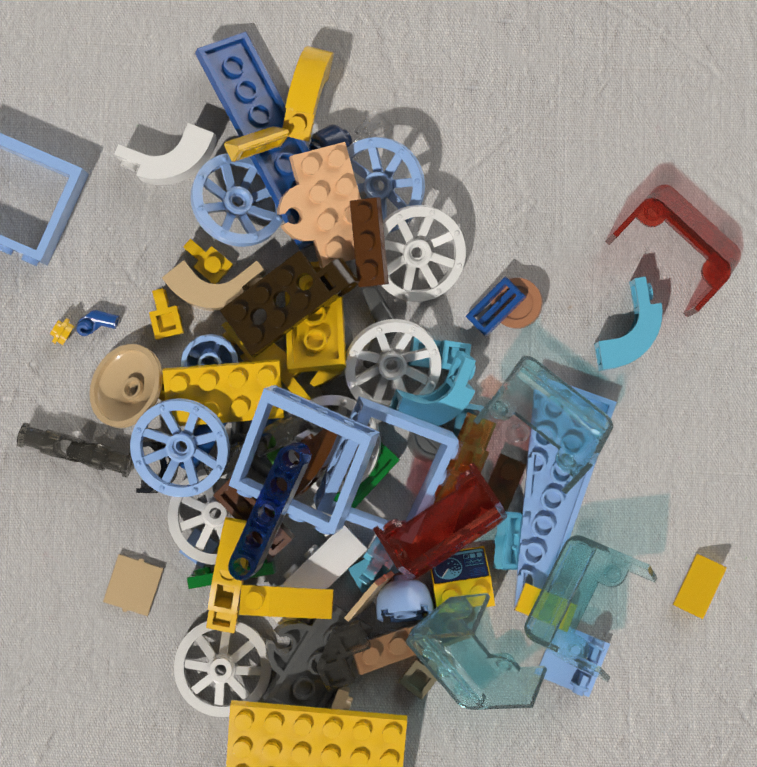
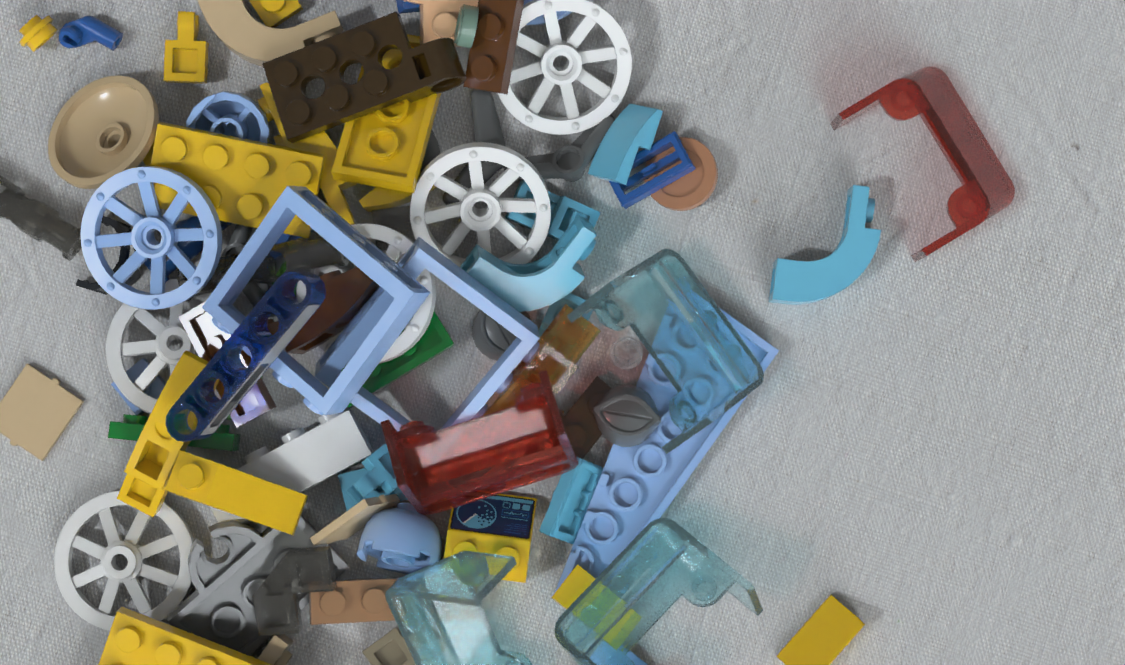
camera: 15 degrees right, 0 degrees up
(349, 246) = (466, 26): none -> sand green tile
(442, 314) = (572, 159): none -> dark grey piece
(471, 298) = (617, 151): none -> medium azure slope
(528, 474) = (626, 415): none -> dark grey hat

